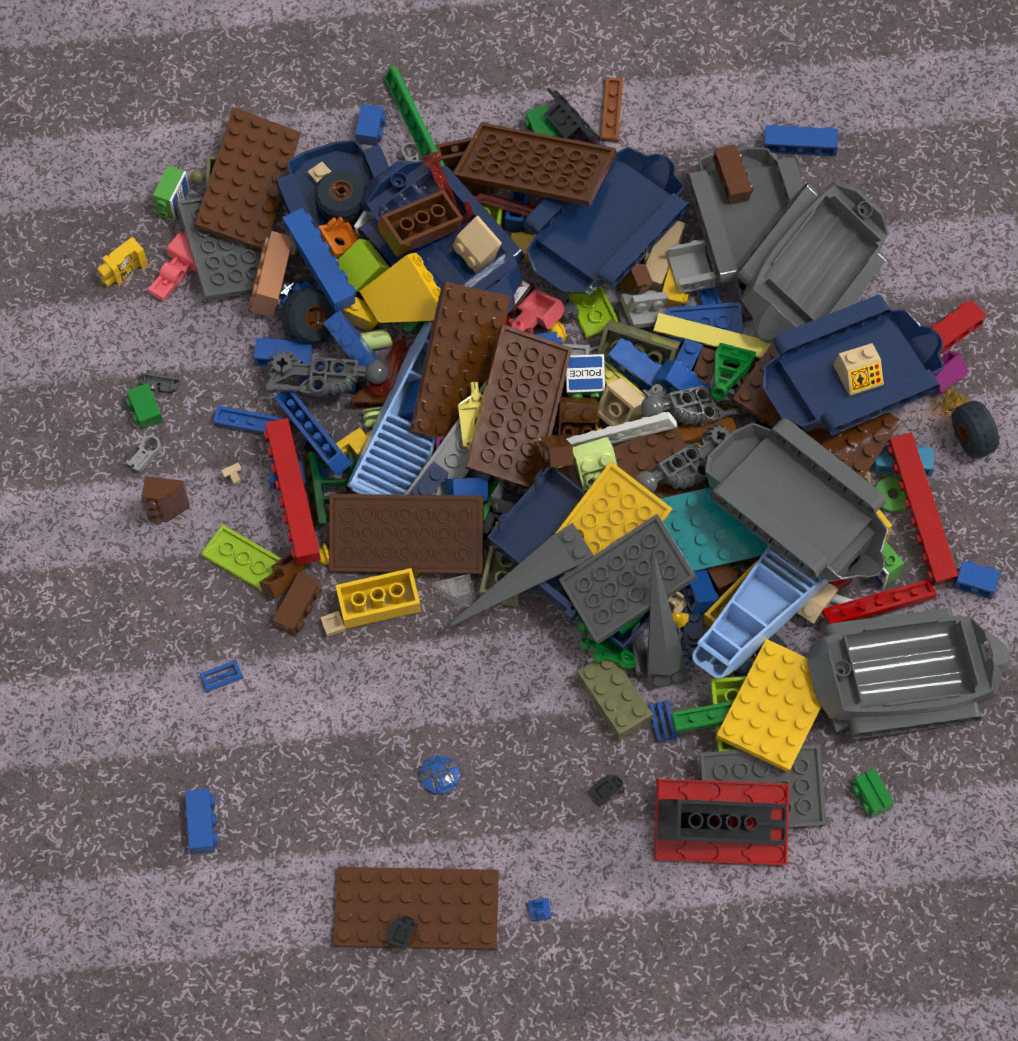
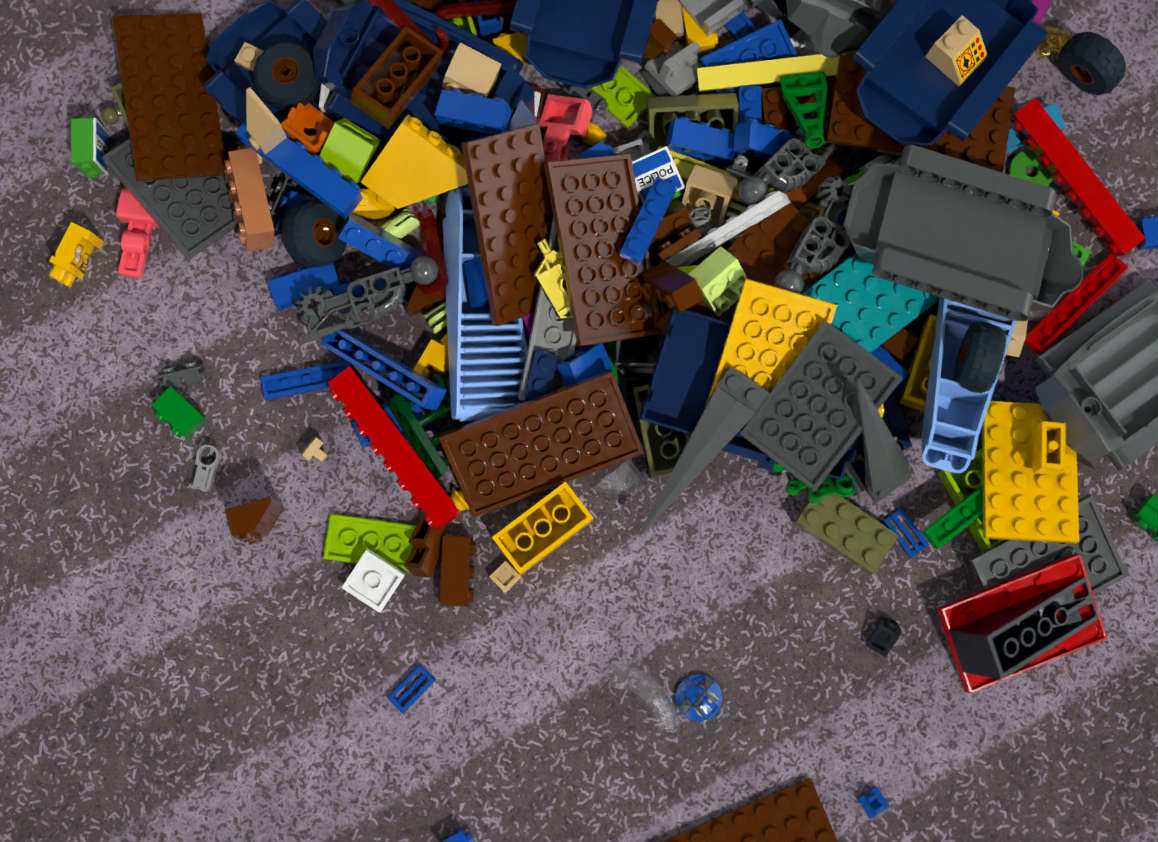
camera: 25 degrees left, 15 degrees up
(231, 584) = (373, 580): none -> white plate
(304, 217) = (261, 124): none -> tan slope
(407, 769) = (650, 691): none -> clear brick
(464, 268) = (473, 112): none -> blue brick
(562, 400) = (648, 220): none -> blue plate
(571, 429) = (685, 238): none -> reddish brown plate
(606, 419) = (701, 219): none -> light grey wheel
(771, 596) = (980, 357): none -> black wheel
(795, 686) = (1049, 448): none -> yellow brick

